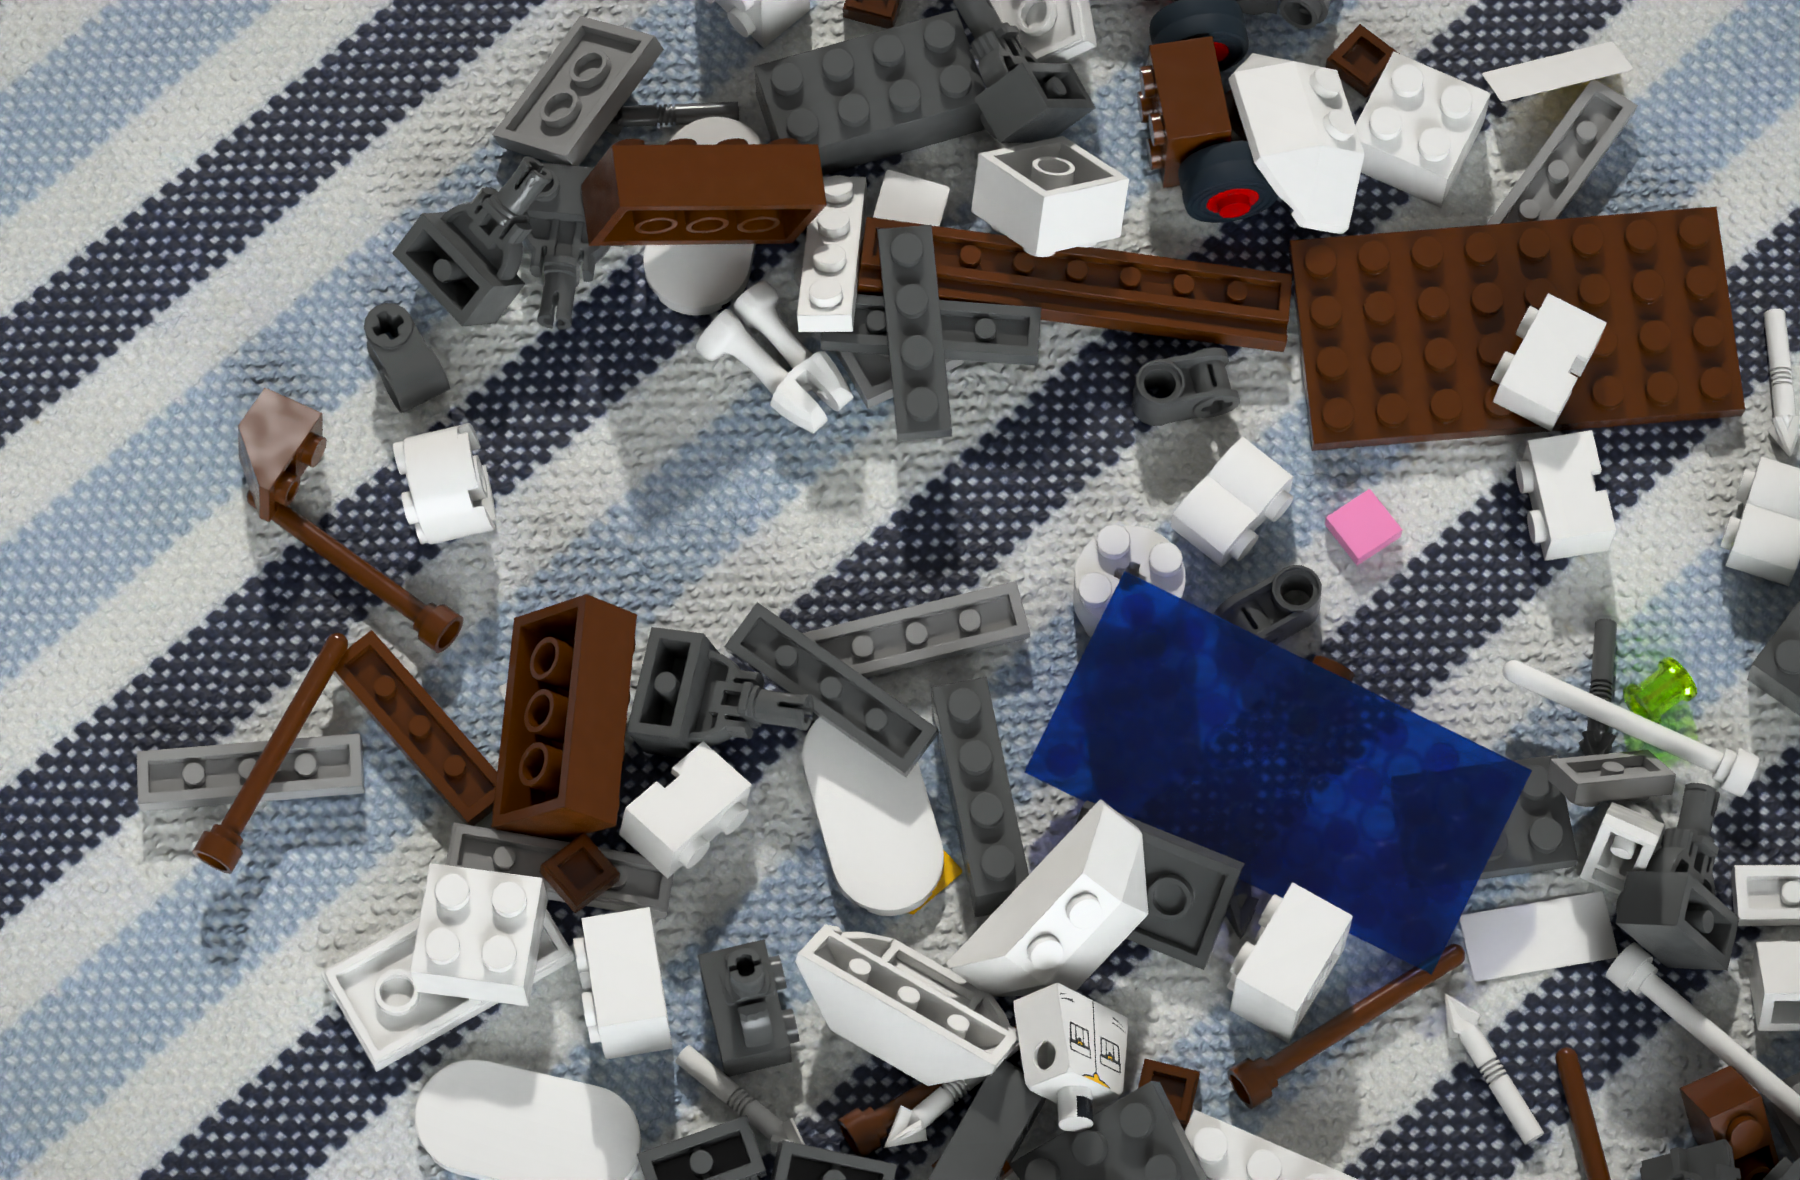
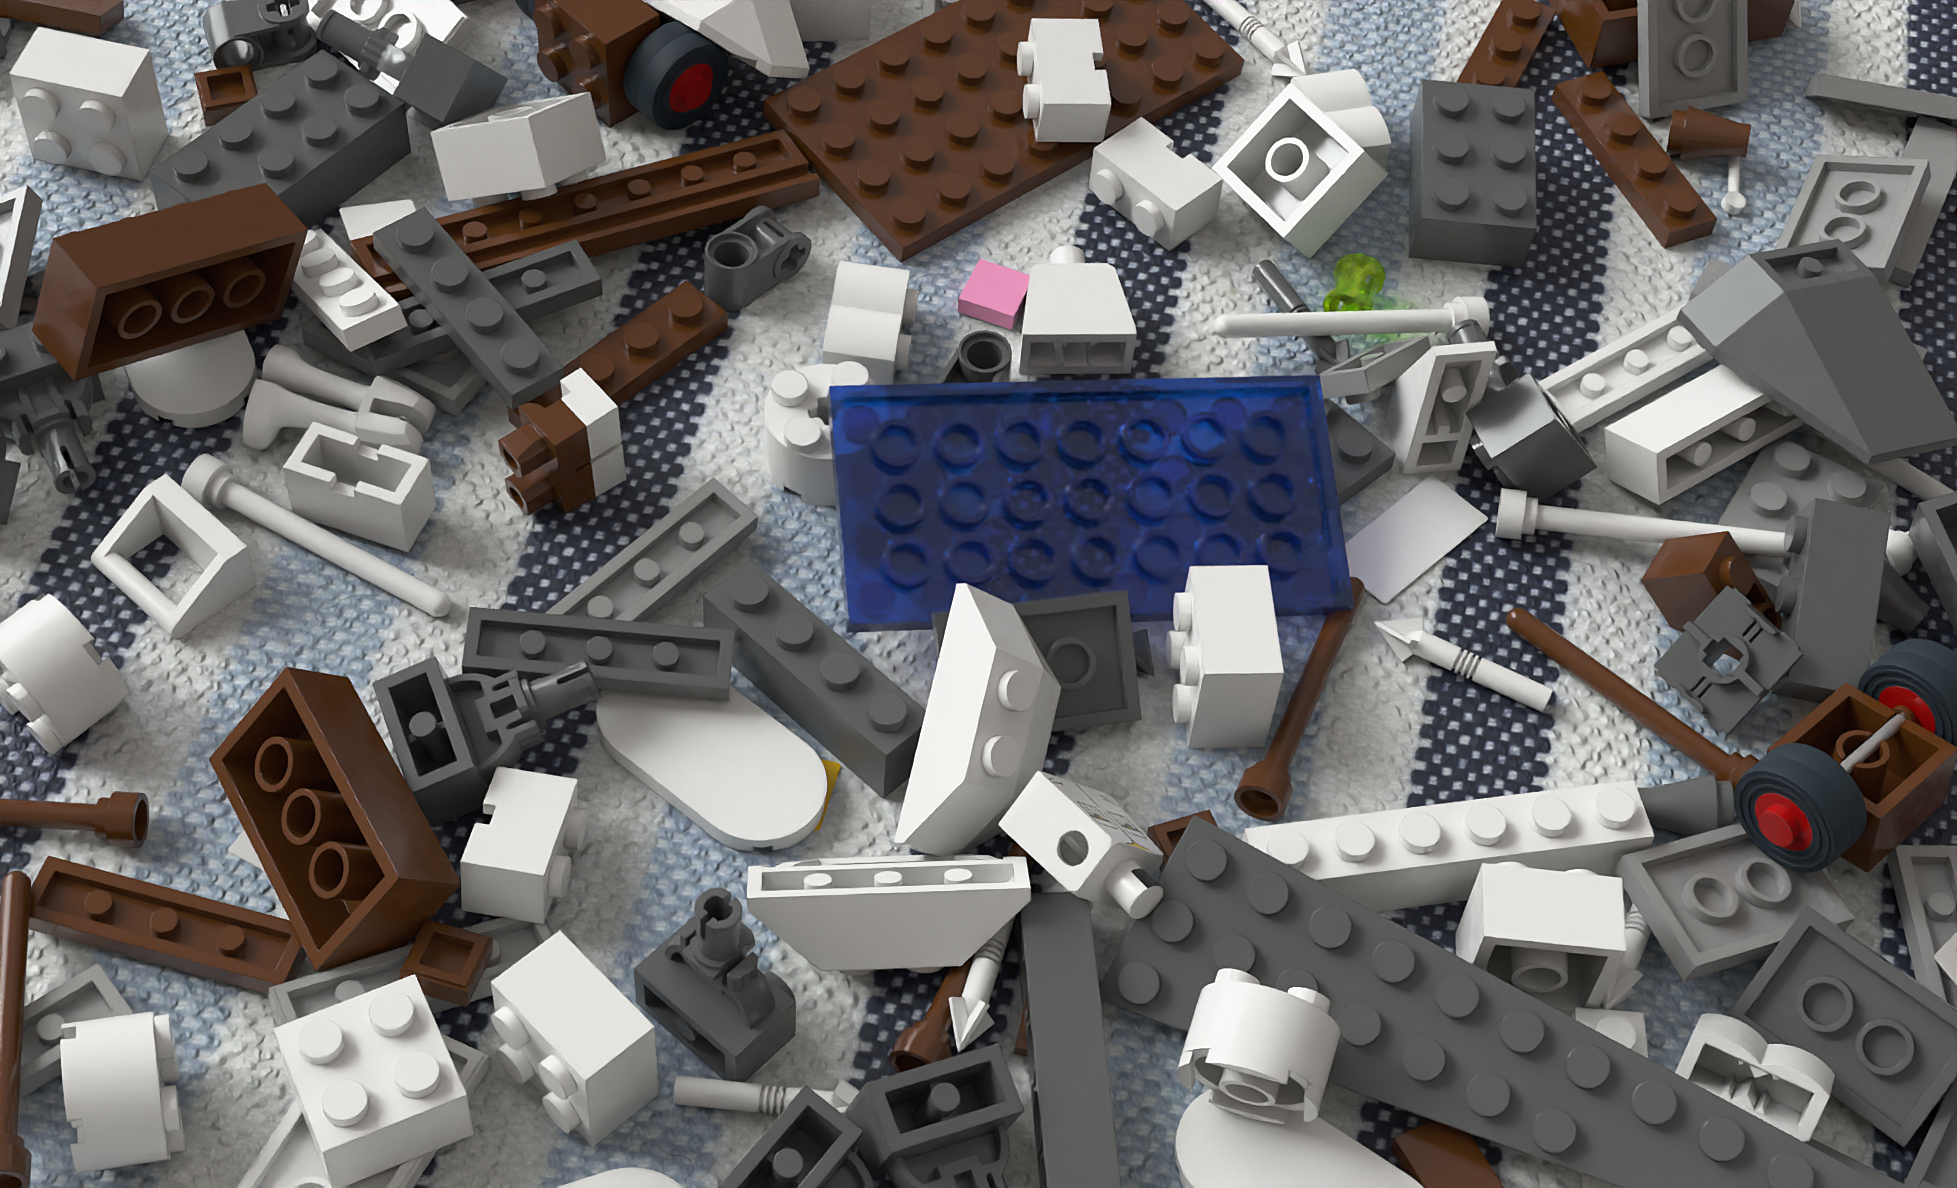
camera: 40 degrees left, 15 degrees down
(319, 841) = (118, 1090): none -> white brick
(617, 465) = (171, 511): none -> white tile
(653, 376) = (215, 485): none -> white piece
(749, 444) = (360, 489): none -> white brick
(915, 498) = (565, 449): none -> reddish brown hips
(1025, 431) = (645, 346): none -> reddish brown plate
(1403, 586) = (1076, 318): none -> white torso
(1685, 559) = (1299, 171): none -> white brick

